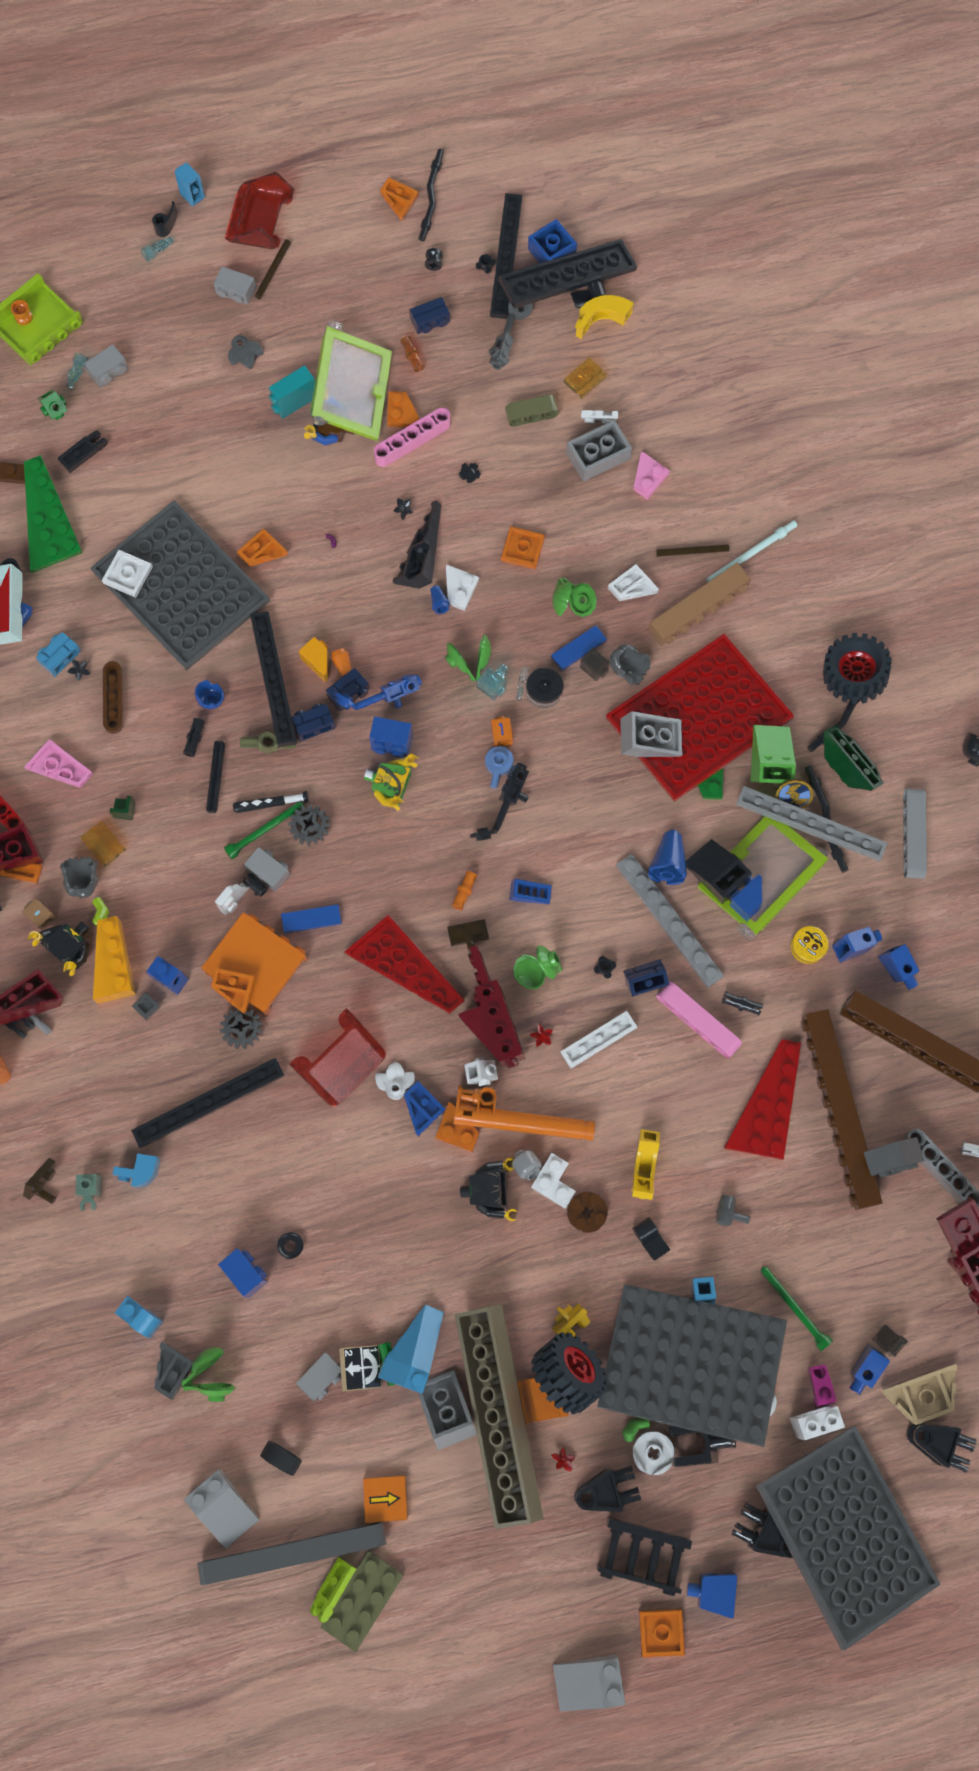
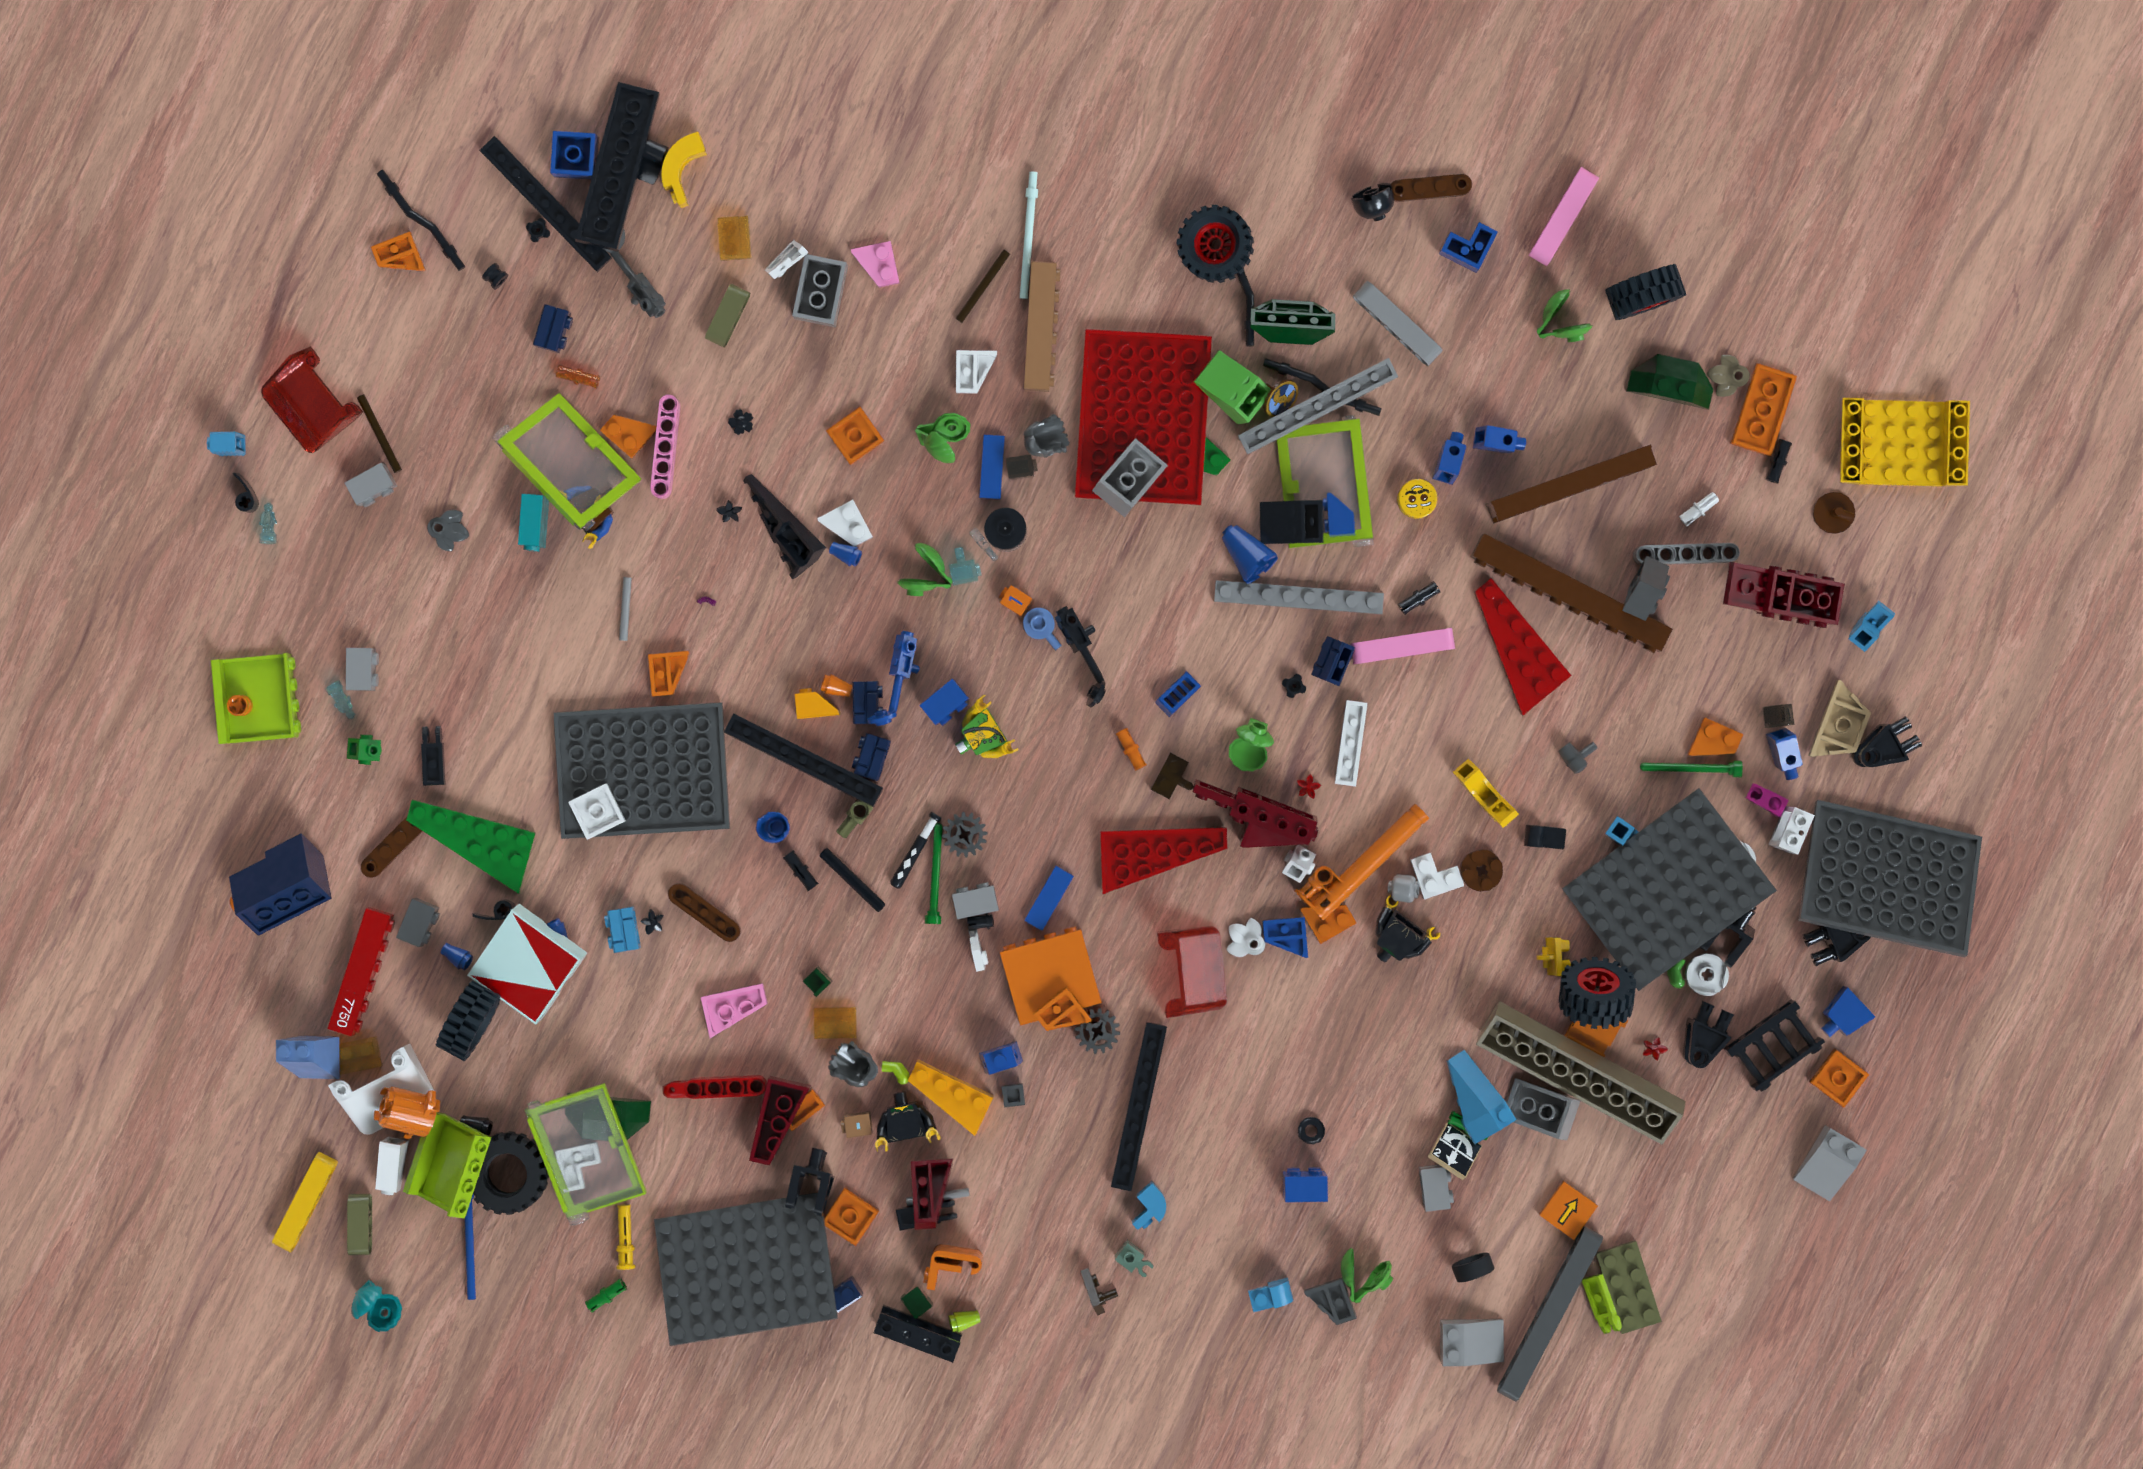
camera: 50 degrees left, 15 degrees up
(286, 492) = (625, 608): none -> light grey bar
(830, 1307) = (1714, 739): none -> orange wing

